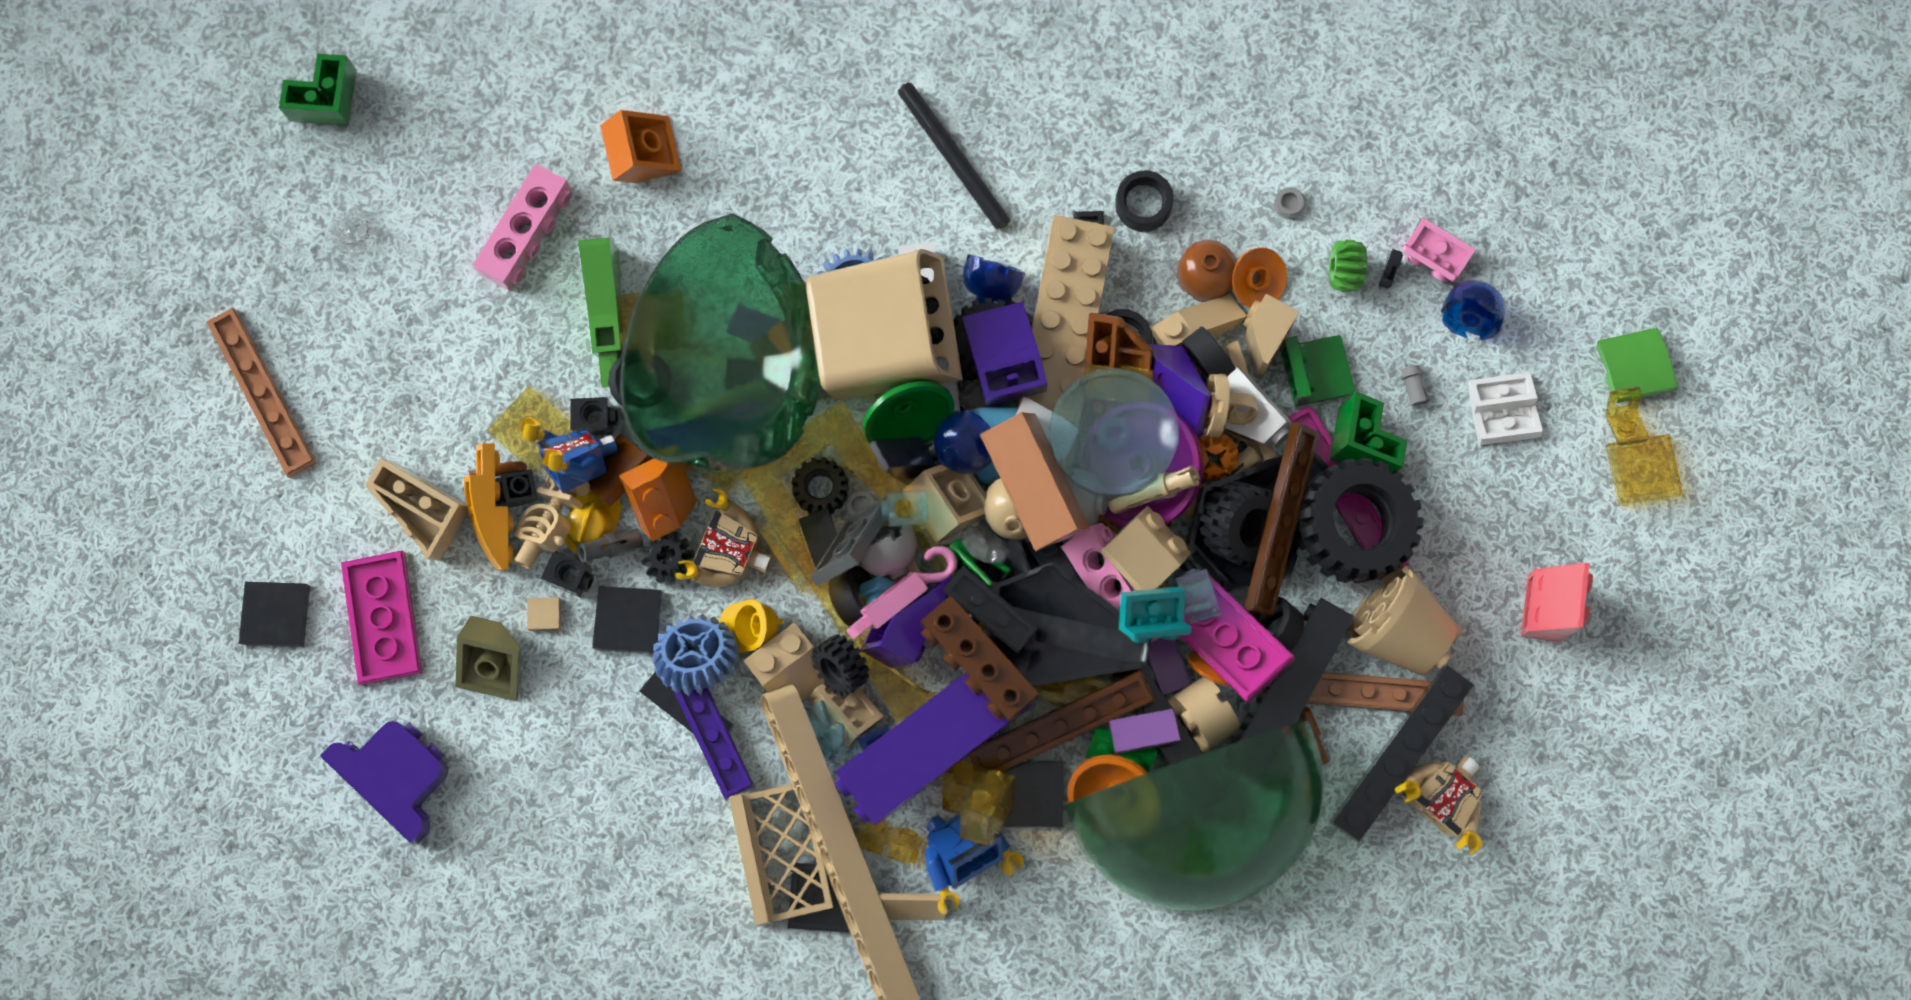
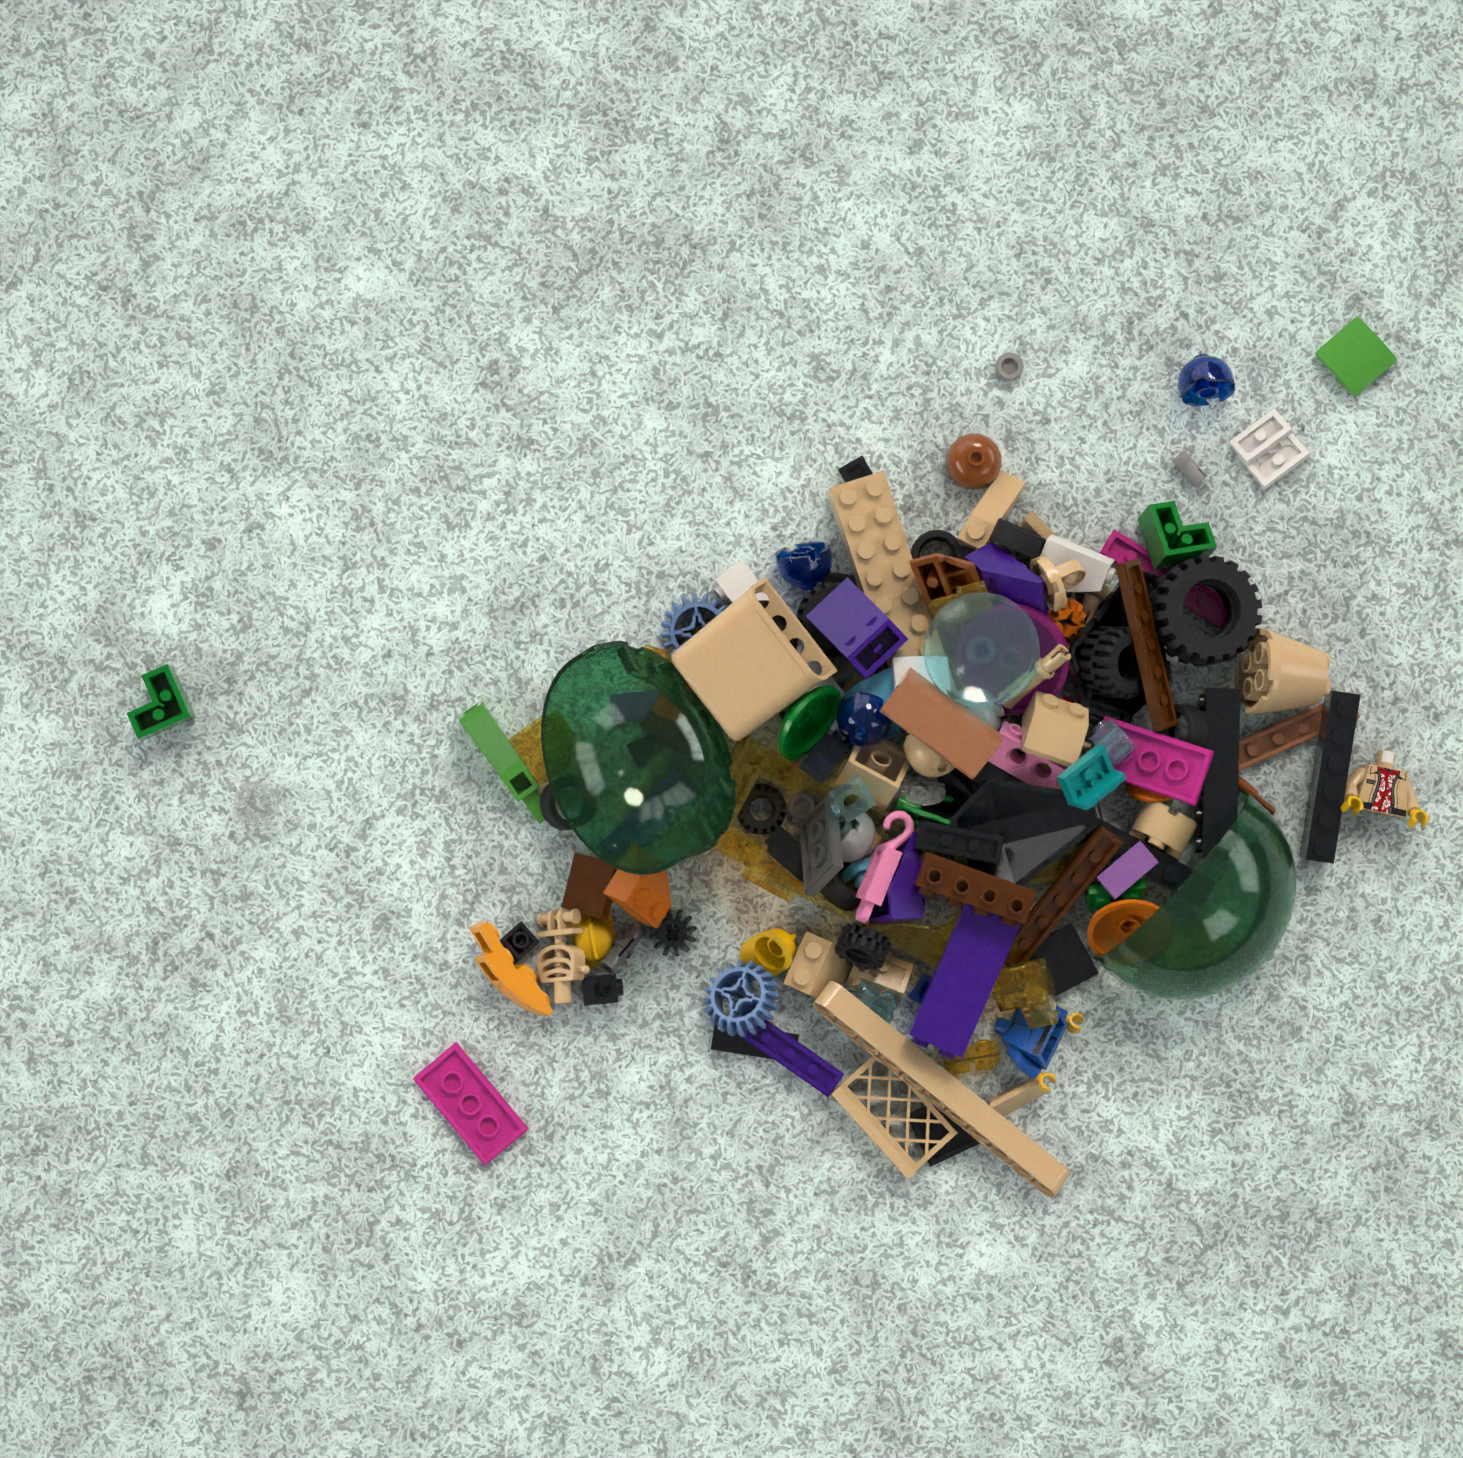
camera: 40 degrees left, 10 degrees up
(261, 392) = (261, 977): nougat tile -> none
(274, 614) = (383, 1147): black tile -> none
(393, 775) = (556, 1220): dark purple brick -> none
(419, 507) = (449, 1000): tan wedge -> none
(487, 659) = (578, 1089): olive slope -> none
(507, 467) = (503, 929): dark orange piece -> none
(508, 426) = (500, 887): clear yellow tile -> none
(521, 211) = (387, 683): bright pink brick -> none
(544, 614) = (599, 1029): tan tile -> none
(570, 457) = (550, 897): torso -> none
(581, 409) = (533, 851): black brick -> none
(627, 619) = (667, 998): black tile -> none
(640, 146) = (452, 606): orange slope -> none
(727, 547) = (716, 899): torso -> none
(953, 156) = (713, 473): black axle -> none
(1151, 179) = (906, 414): black tyre -> none
(1168, 666) = (1118, 807): medium lavender tile -> none
(1267, 328) = (1052, 492): tan slope -> none
(1270, 276) = (1027, 444): orange dish -> none
(1316, 369) = (1105, 497): green bracket -> none
(1347, 266) = (1086, 399): bright green gear -> none
(1392, 263) = (1119, 375): black tile -> none
(1438, 250) = (1150, 346): bright pink bracket -> none
(1556, 601) = (1390, 592): coral slope -> none
(1625, 419) = (1369, 407): clear yellow bracket -> none
(1644, 470) = (1403, 440): clear yellow tile -> none

